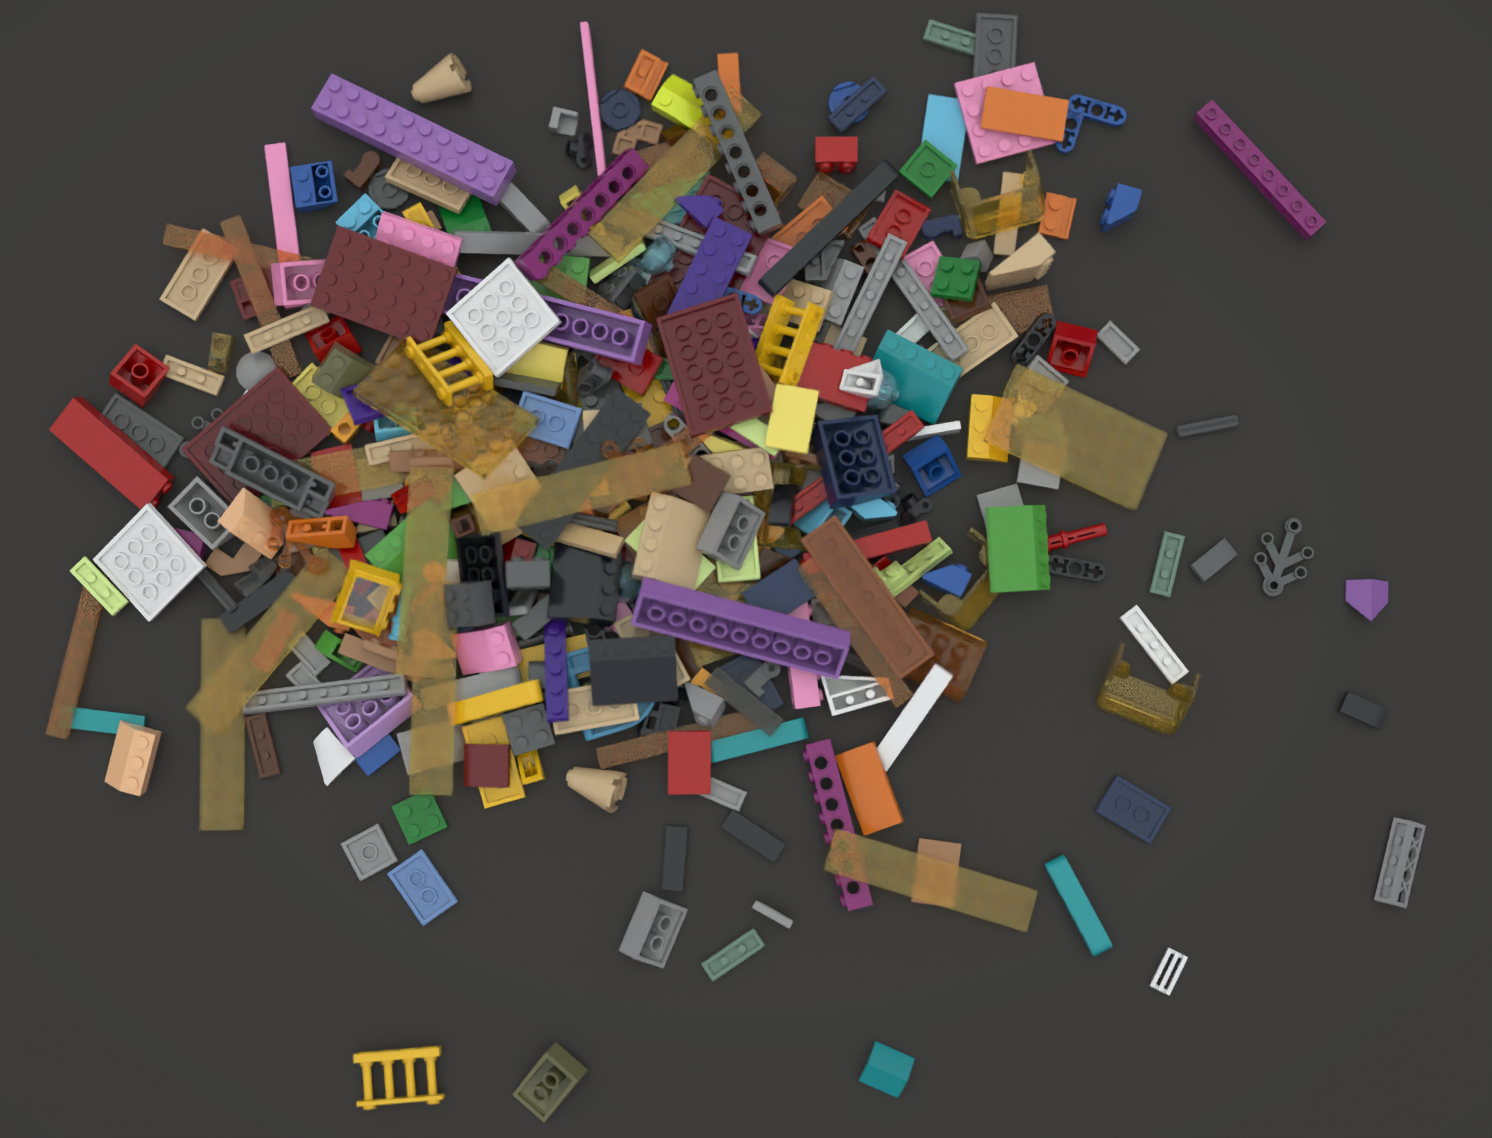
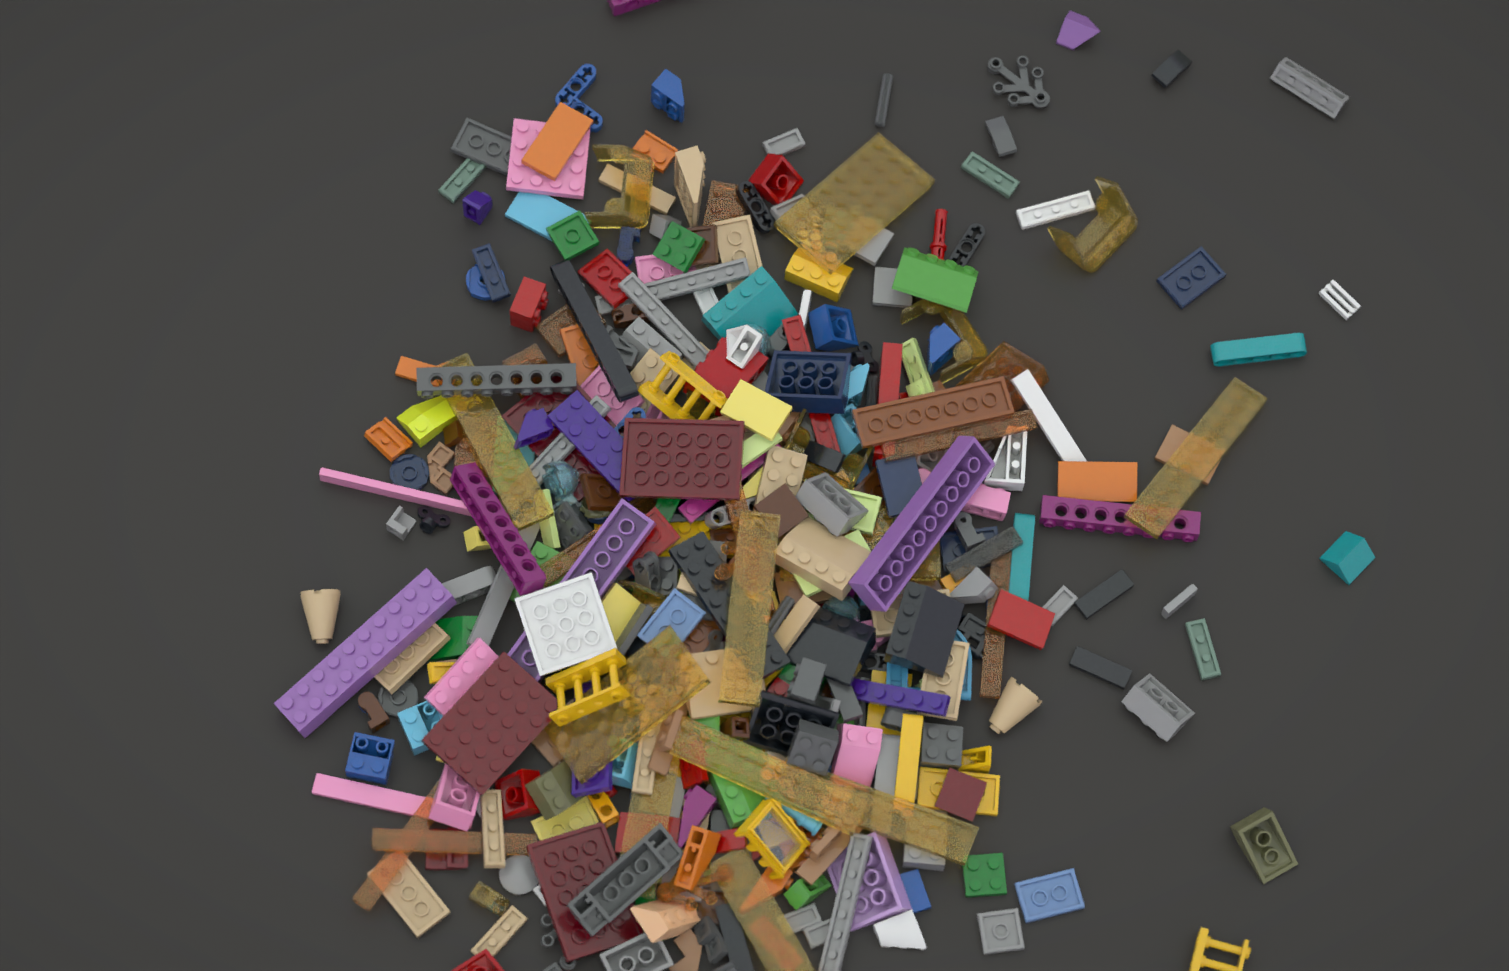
camera: 80 degrees left, 15 degrees down
(925, 63) = (477, 206): none -> dark purple slope

